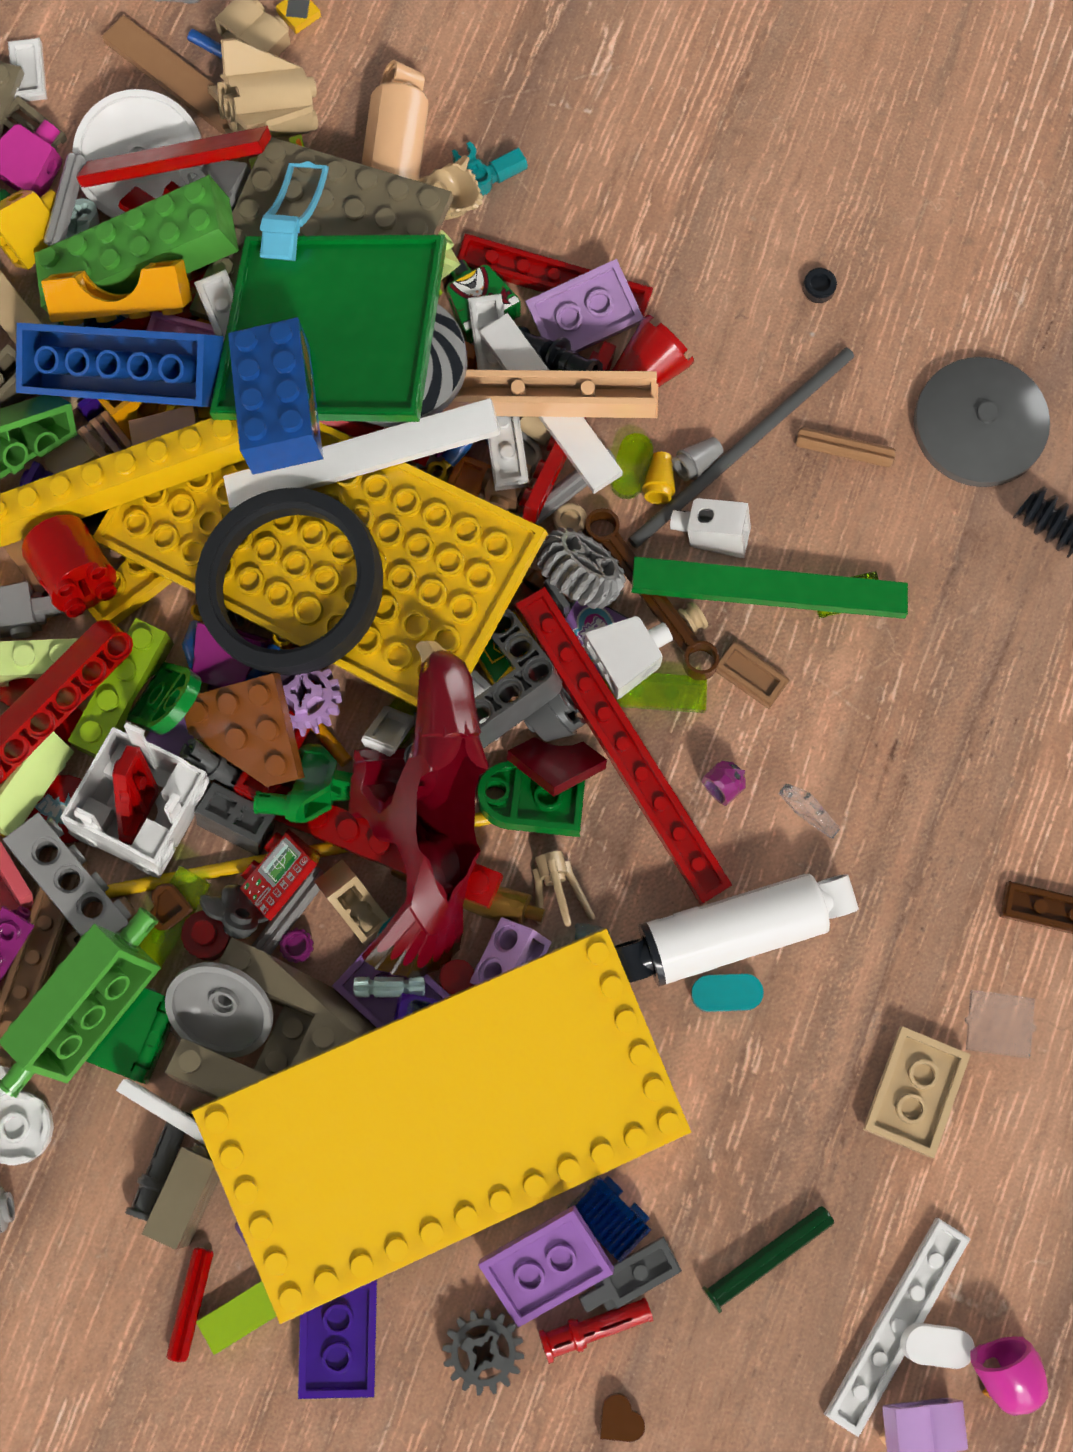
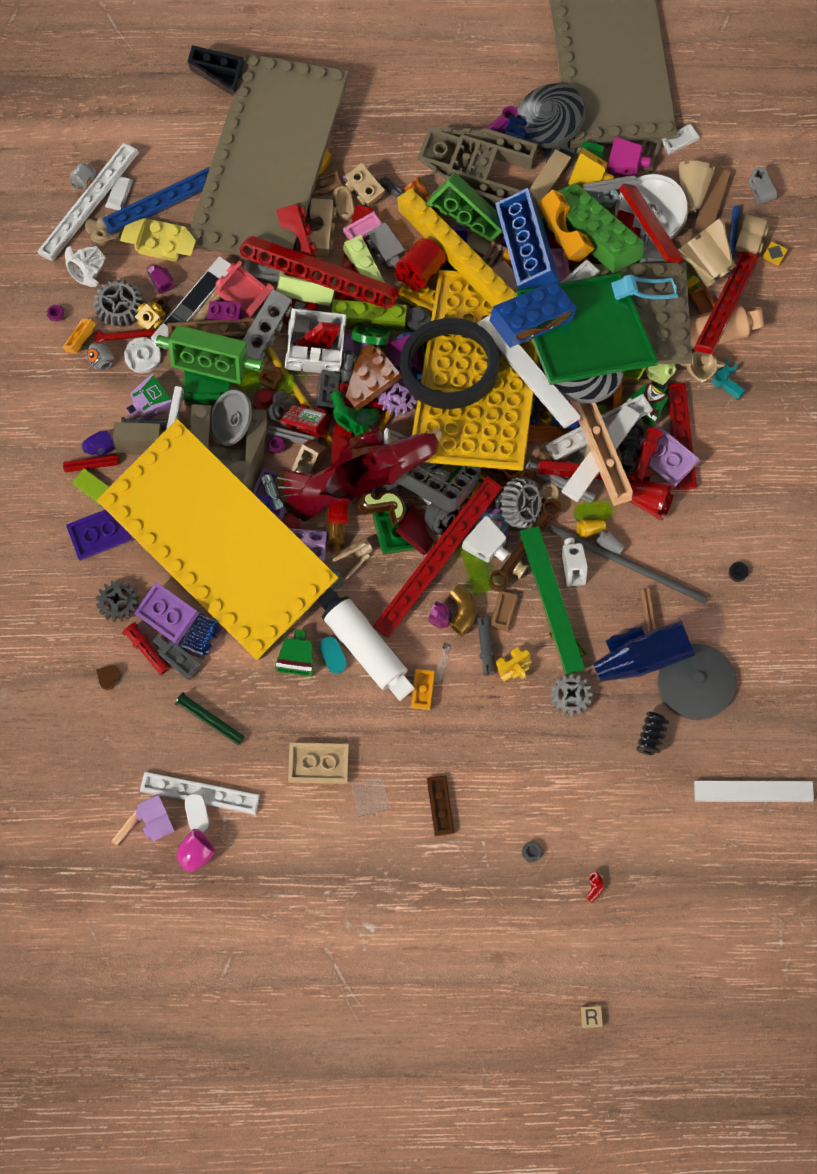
camera: 70 degrees right, 5 degrees down
(111, 1147) = (149, 399): none -> torso
(117, 67) = (695, 182): none -> tan cone
(159, 1276) = (98, 443): none -> dark purple rock
(168, 610) = (416, 318): none -> dark grey piece
(342, 145) = (702, 300): none -> orange tile
(371, 107) = (726, 303): none -> red tile
(492, 786) = (384, 502): none -> reddish brown animal
(566, 325) = (649, 447): none -> red pin
(708, 1057) = (296, 656): none -> green torso
(731, 735) = (466, 610): none -> pearl gold cylinder
(806, 727) = (486, 647): none -> dark grey pin
(840, 857) = (423, 689): none -> light orange plate
(850, 679) = (516, 666): none -> yellow hips
(919, 480) = (643, 653): none -> clear blue piece
(938, 609) = (575, 701): none -> light grey gear

